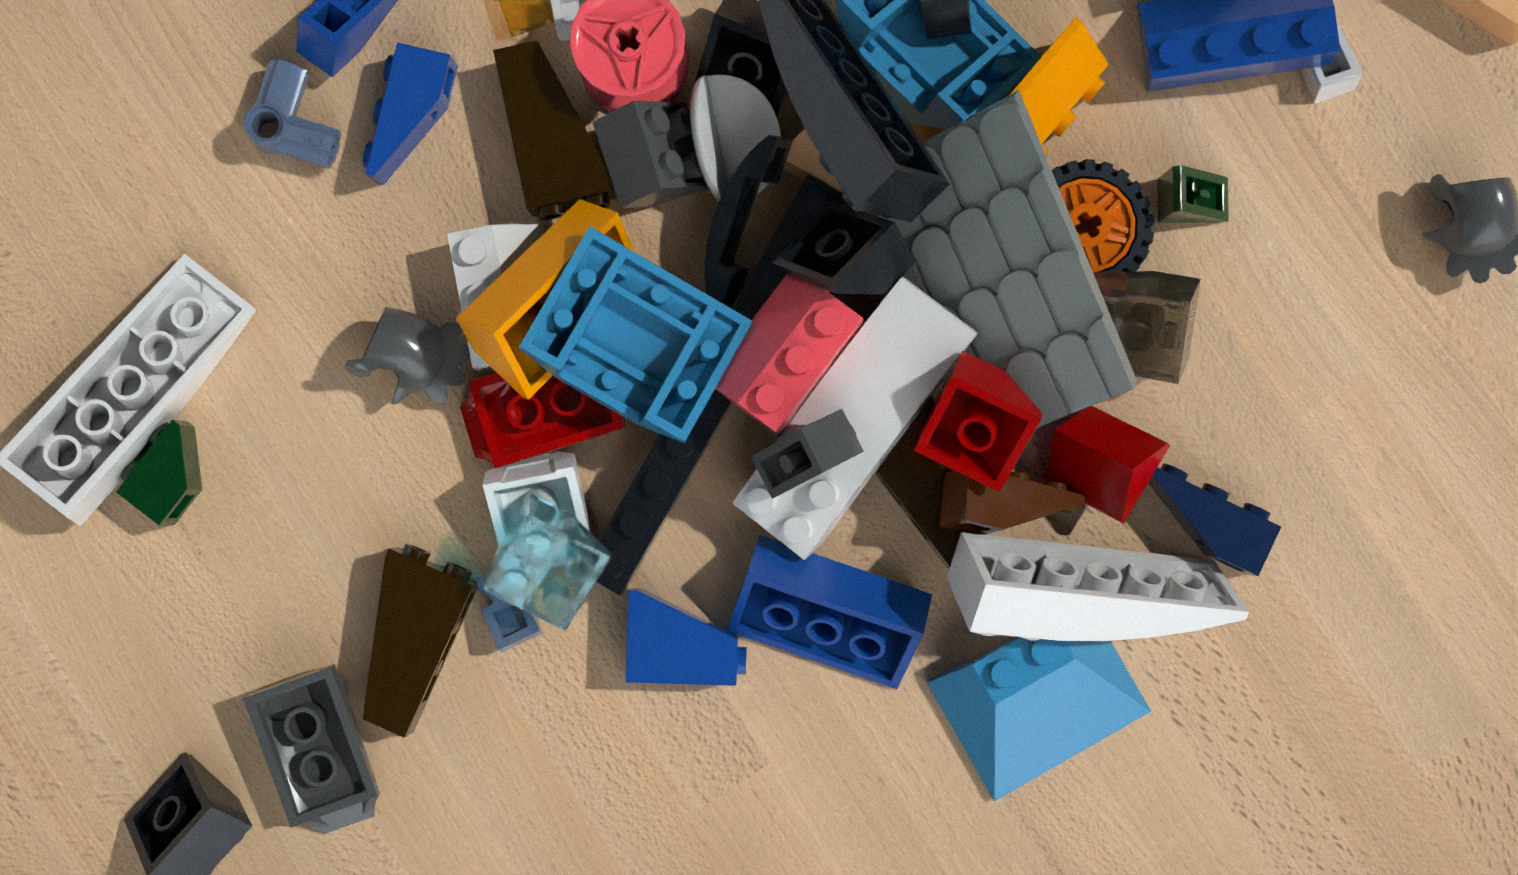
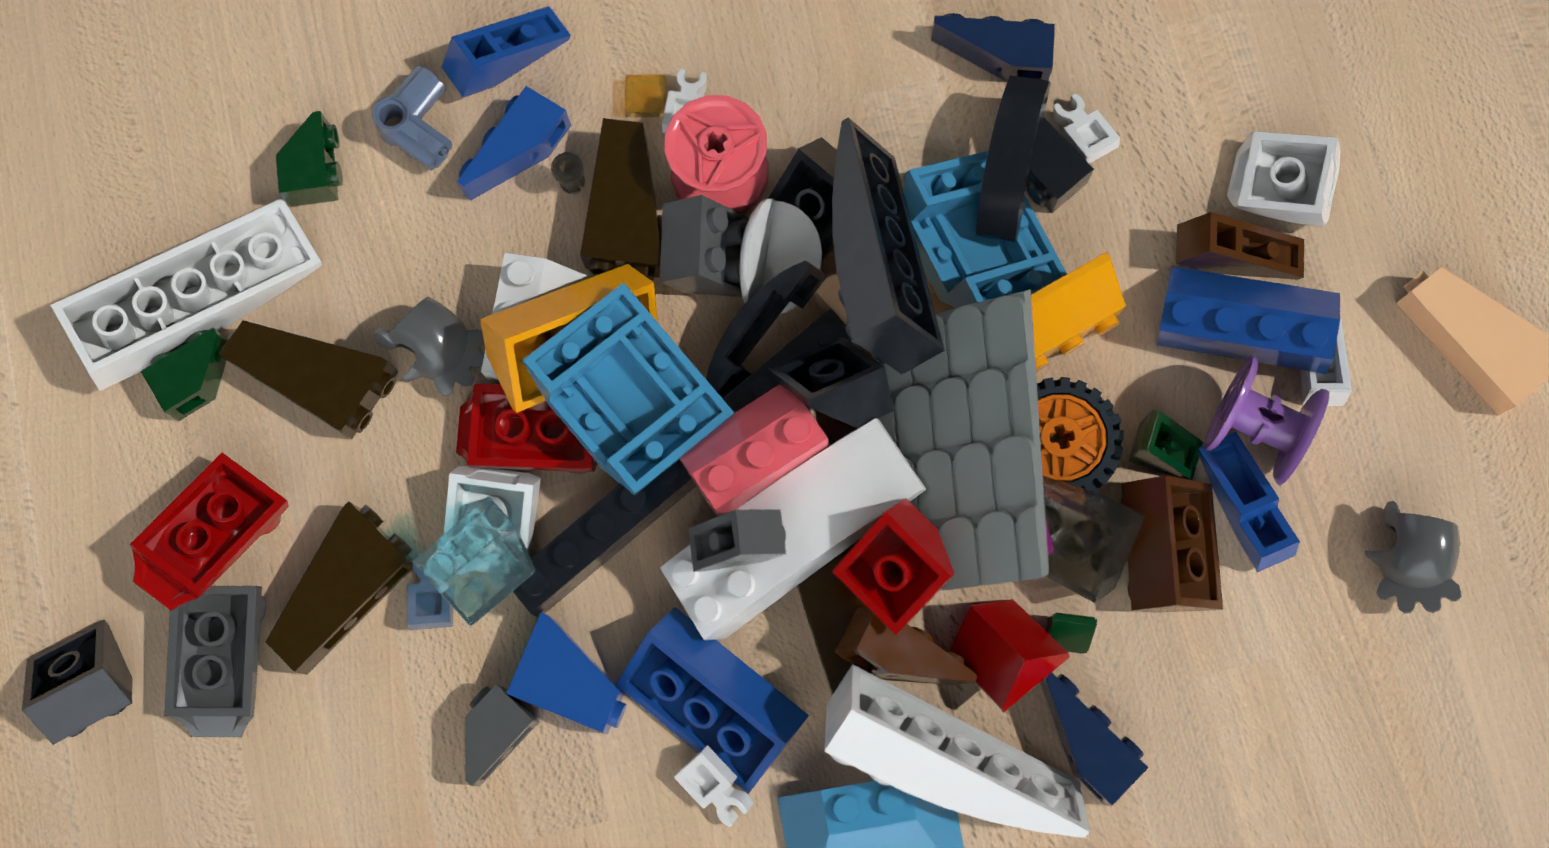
camera: 25 degrees right, 10 degrees down
(196, 207) = (308, 163): none -> dark green slope
(254, 633) = (204, 532): none -> red slope
(299, 430) = (316, 375): none -> dark brown slope
(474, 111) = (568, 171): none -> clear smoke pin
(625, 720) = (493, 732): none -> dark grey slope
(859, 691) = (710, 781): none -> white plate
(1160, 418) = (1072, 631): none -> dark green slope
(1238, 302) = (1176, 547): none -> reddish brown slope
(1290, 136) = (1267, 420): none -> medium lavender piece
(1292, 223) = (1249, 503): none -> blue slope

